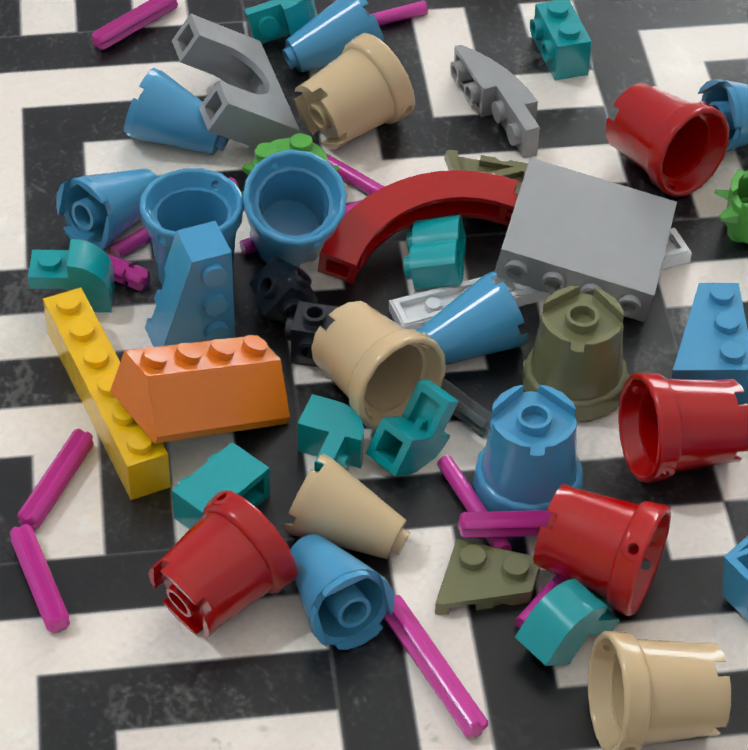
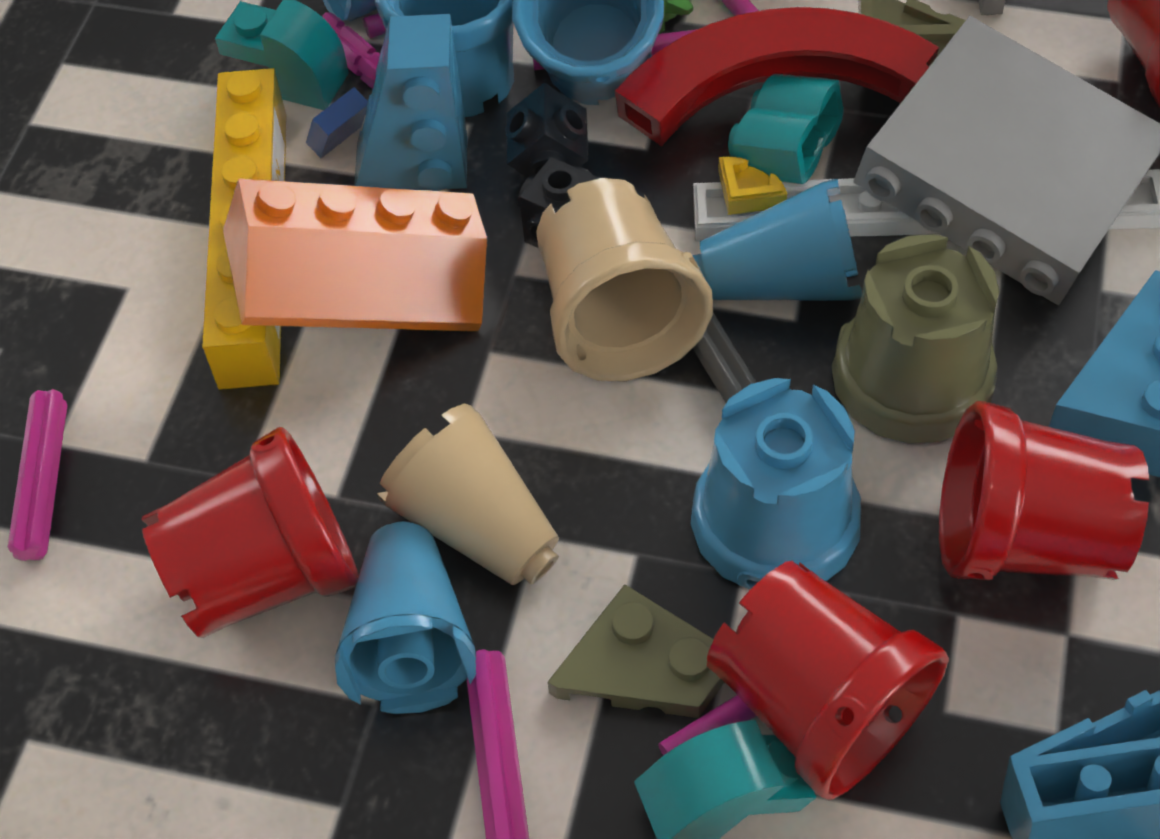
camera: 25 degrees right, 10 degrees up
(56, 479) = (130, 334): dark pink axle -> none
(133, 315) = (337, 122): none -> blue tile
(223, 471) = (332, 410): teal brick -> none
(332, 430) = (519, 372): teal brick -> none
(416, 437) = (630, 405): teal brick -> none
(427, 294) = (747, 187): none -> yellow tile
(467, 495) = (678, 535): dark pink bar -> none
(502, 523) = (689, 581): dark pink axle -> none

